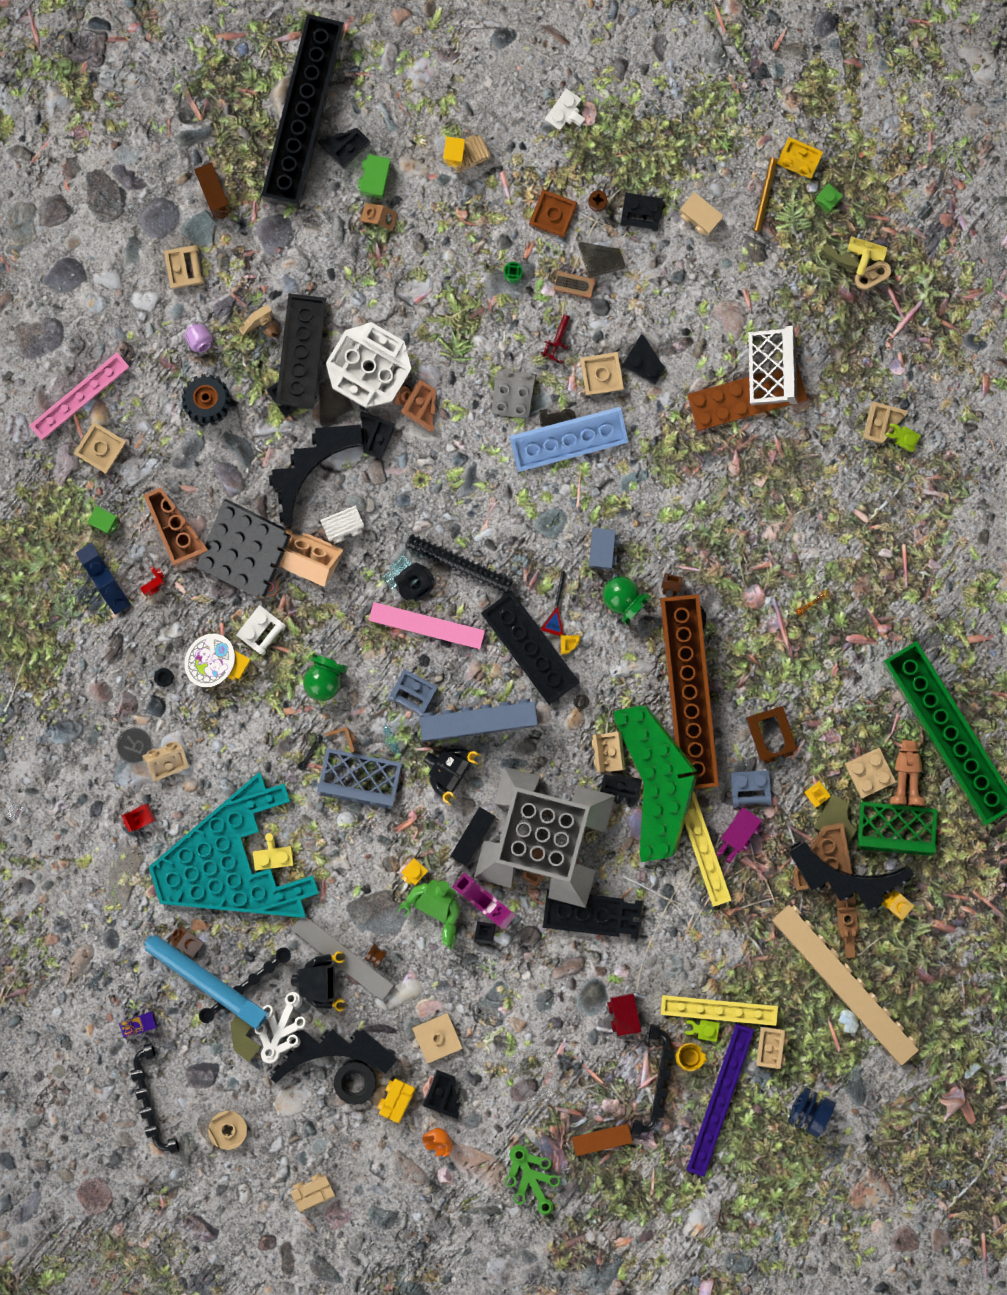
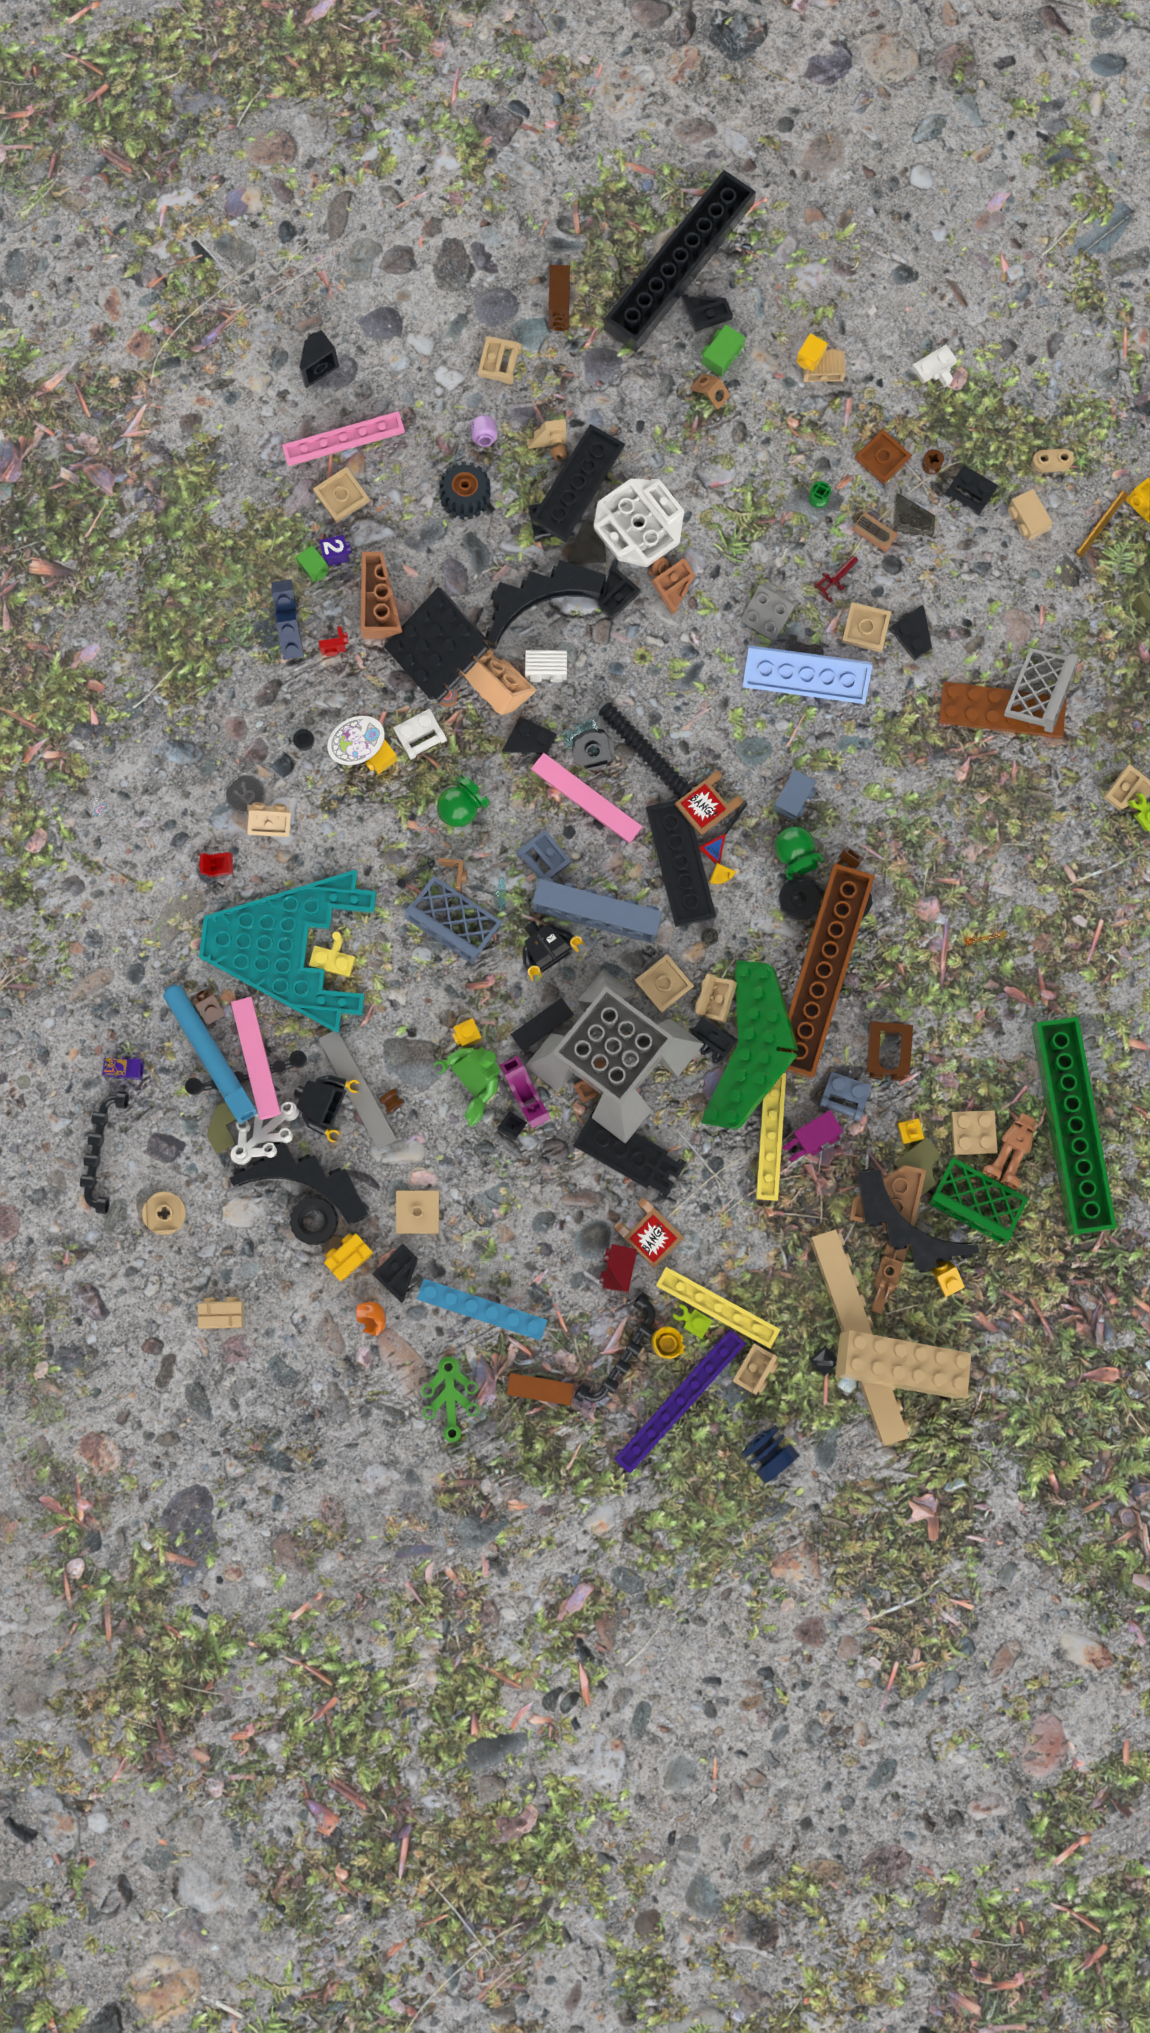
camera: 25 degrees right, 5 degrees down
(26, 335) = (317, 358): none -> black slope
(117, 499) = (335, 550): none -> dark purple brick
(246, 968) = (256, 1058): none -> bright pink tile
(355, 594) = (529, 738): none -> black wing
(527, 1096) = (482, 1309): none -> dark azure plate
(531, 591) = (704, 805): none -> flag
(560, 758) = (664, 983): none -> tan plate
(639, 974) = (651, 1236): none -> flag
(649, 627) = (794, 888): none -> black plate
(701, 155) = (1054, 462): none -> tan plate
(824, 1015) = (824, 1360): none -> black tile
(889, 993) = (903, 1364): none -> tan brick

